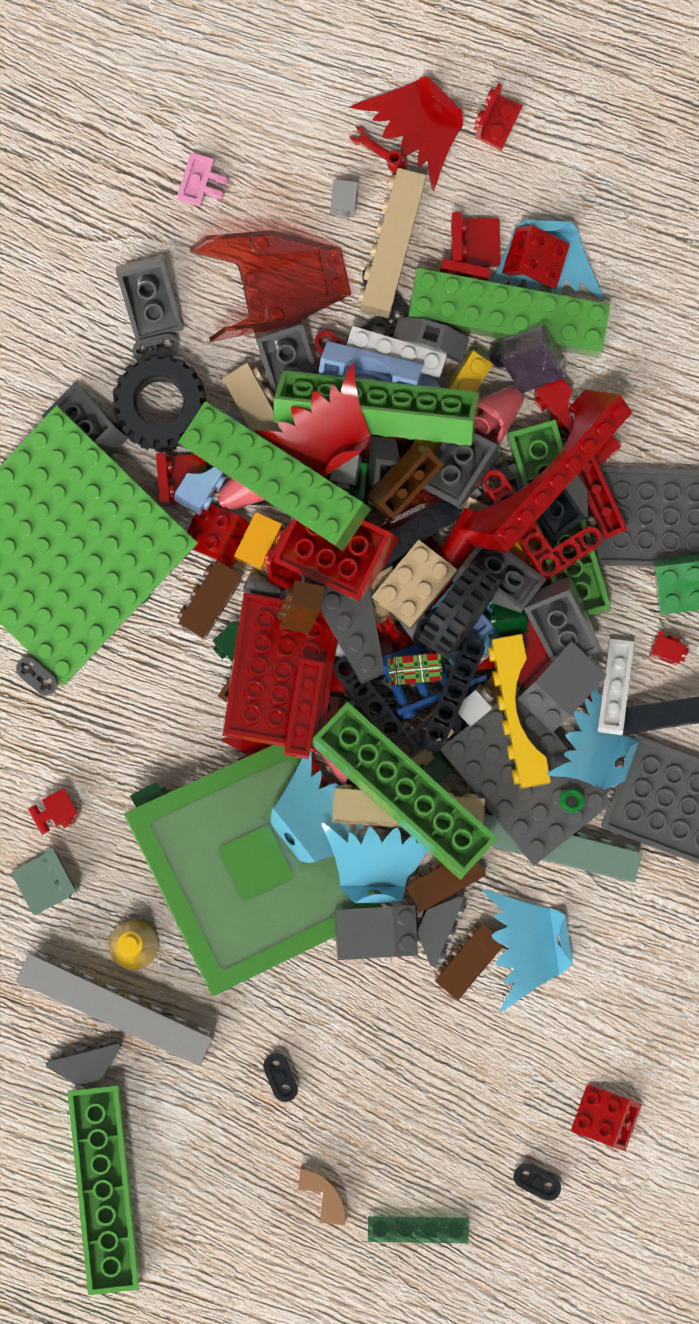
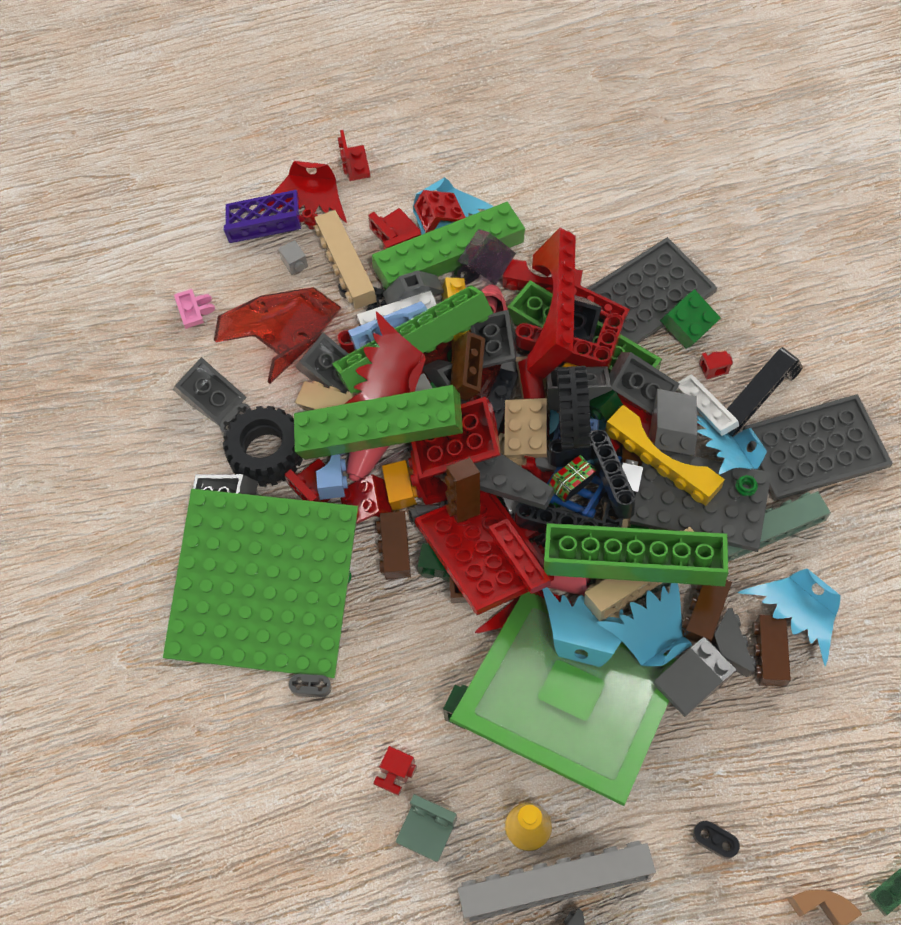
camera: 30 degrees left, 20 degrees down
(340, 137) = (264, 224): none -> dark purple fence

